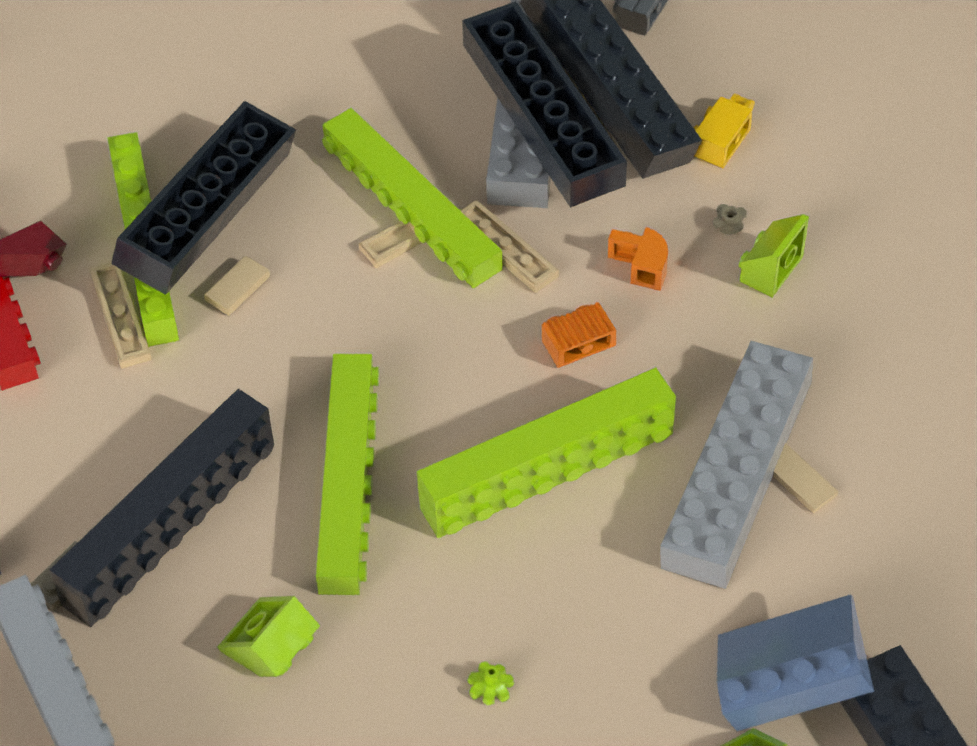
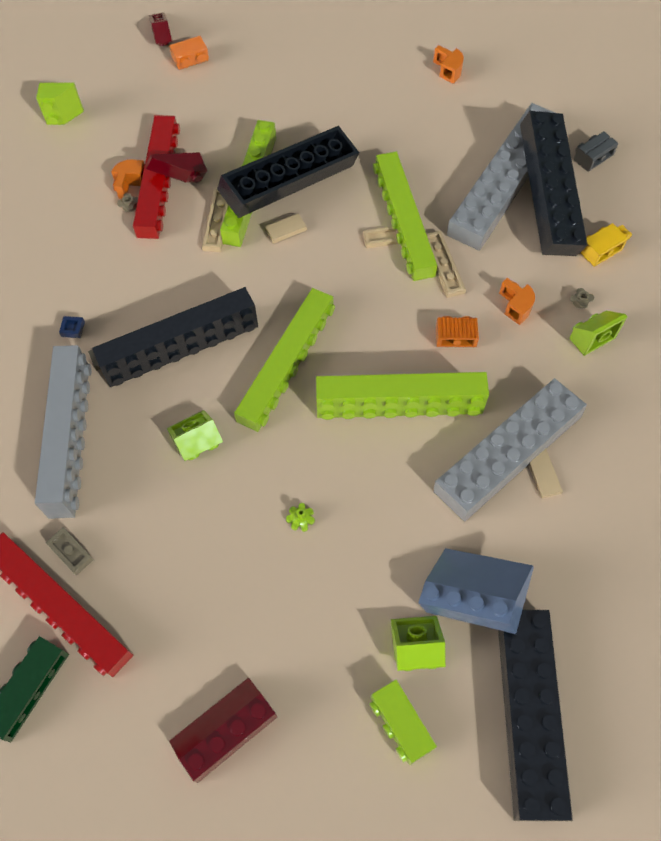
camera: 25 degrees right, 10 degrees up
(544, 104) = (502, 189): black brick -> none

